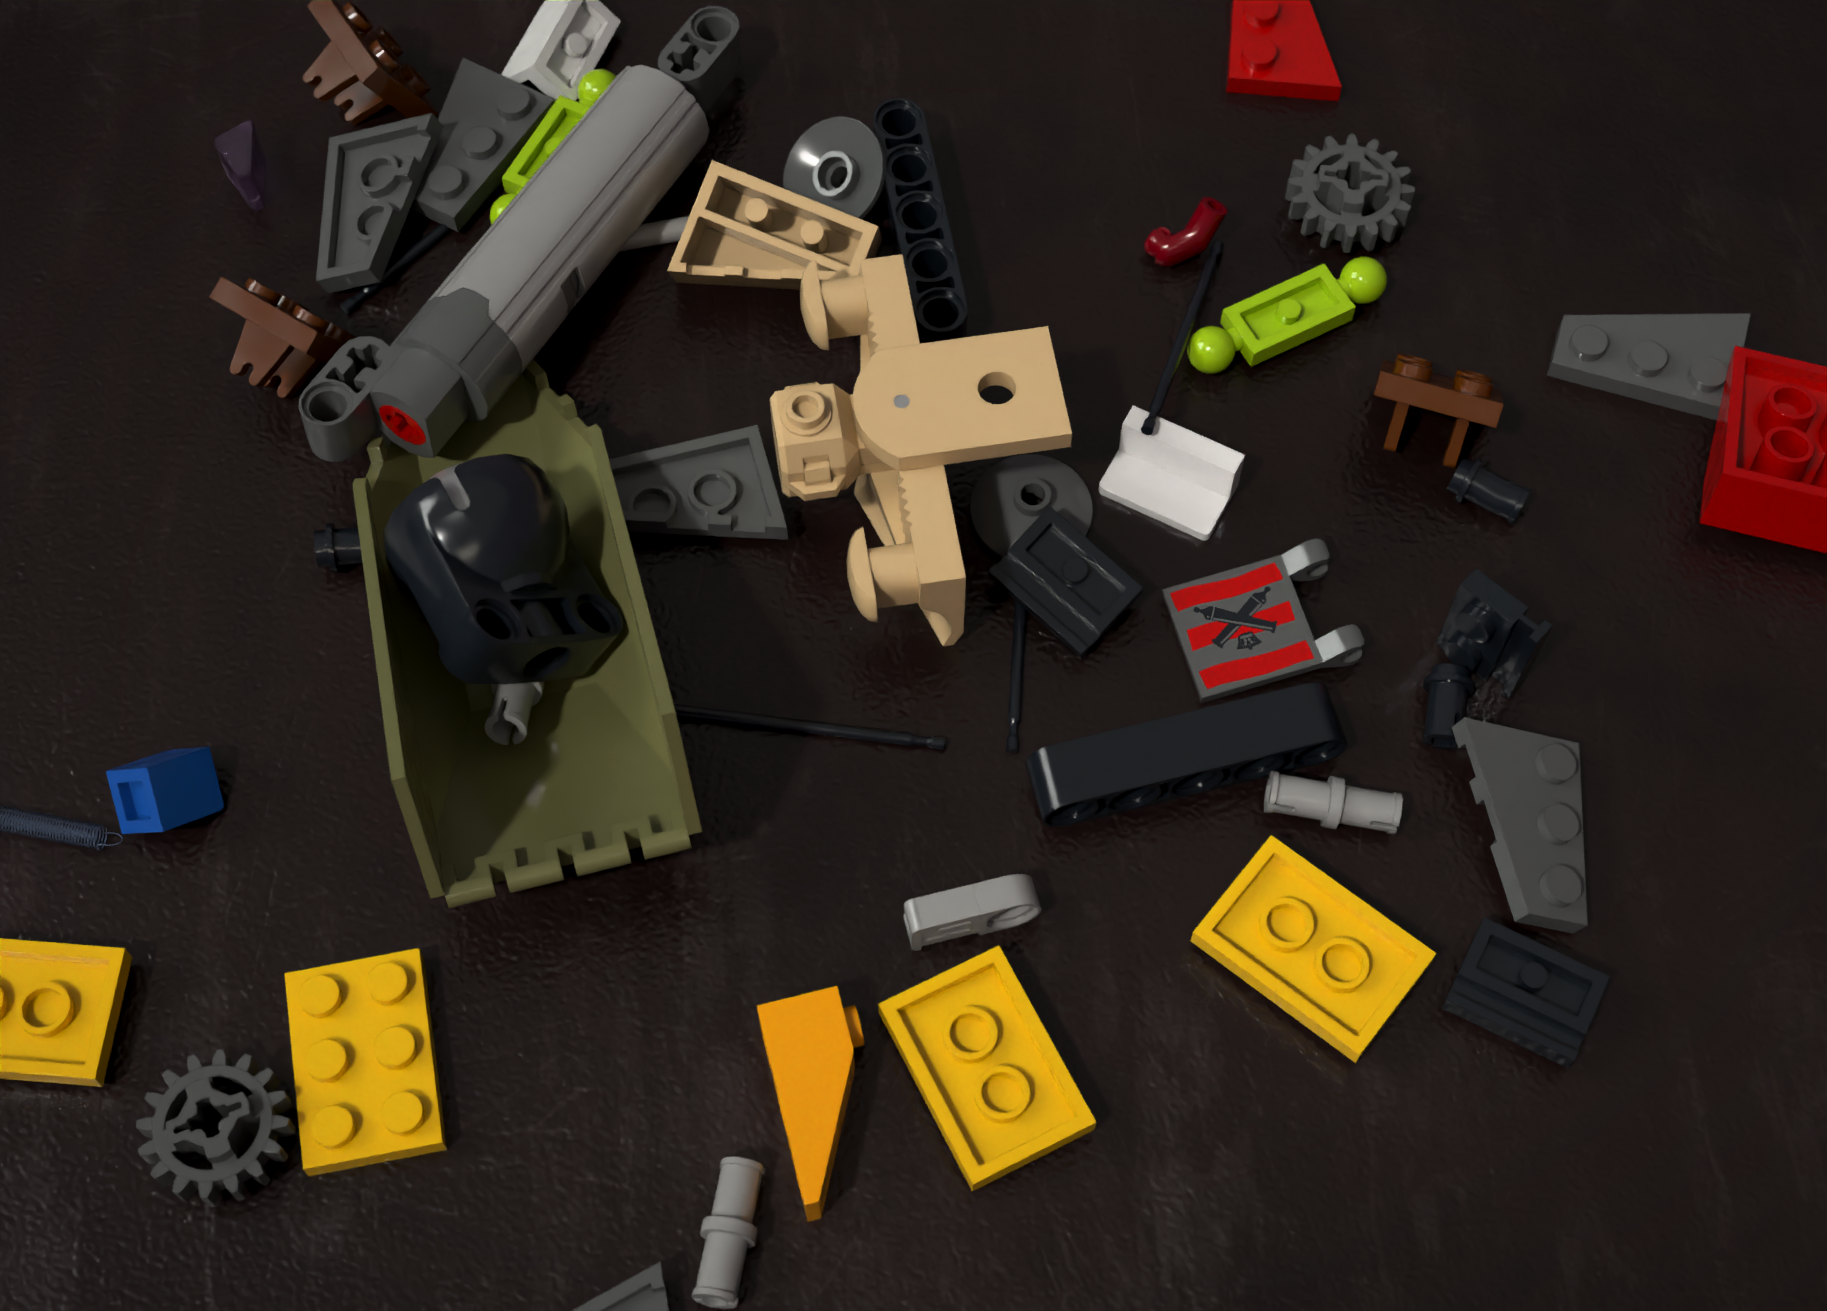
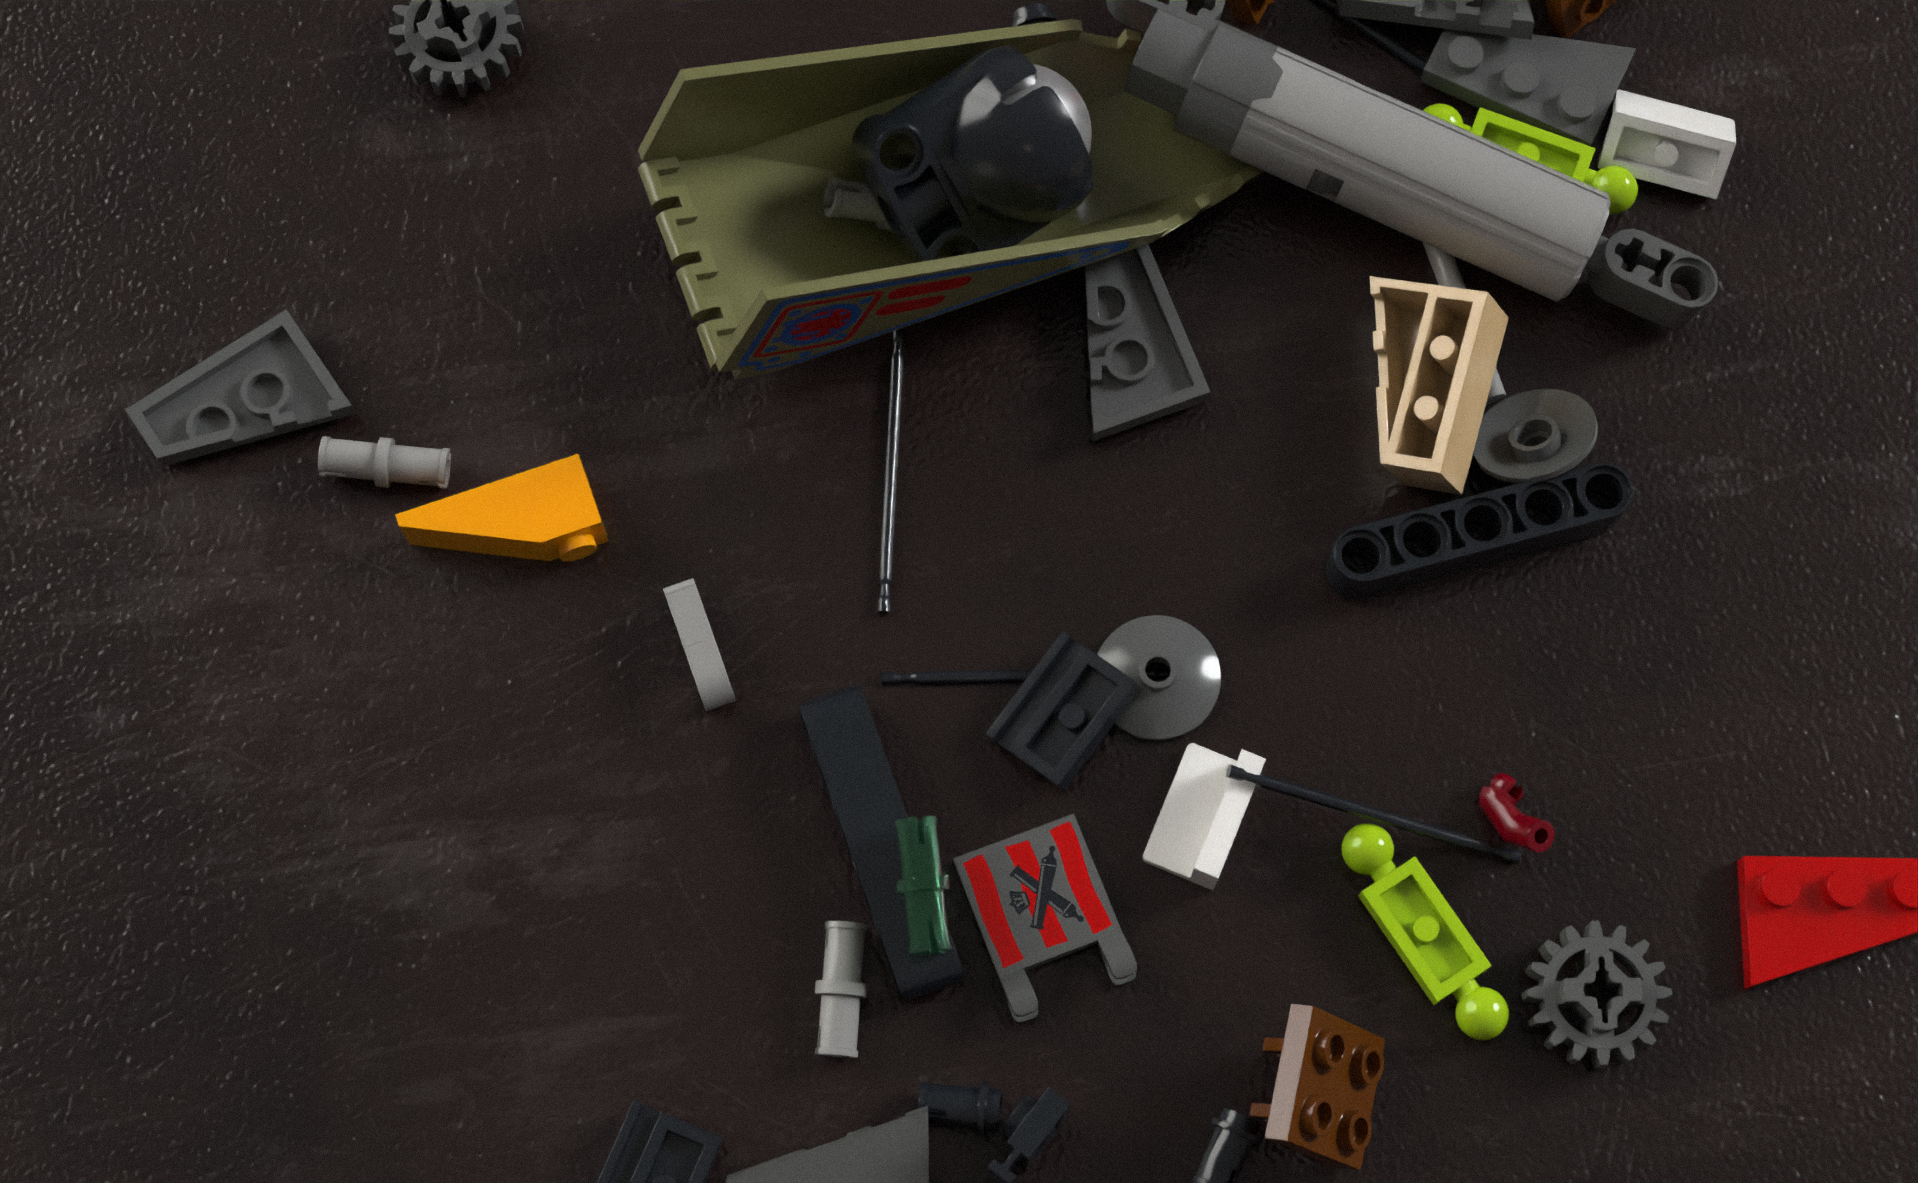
camera: 85 degrees right, 10 degrees up
(364, 1062) = (530, 142): yellow plate -> none
(902, 425) = (1183, 517): tan piece -> none
(986, 1067) = (547, 671): yellow plate -> none
(1249, 696) = (923, 885): none -> clear green pin
(1313, 948) = (684, 972): yellow plate -> none

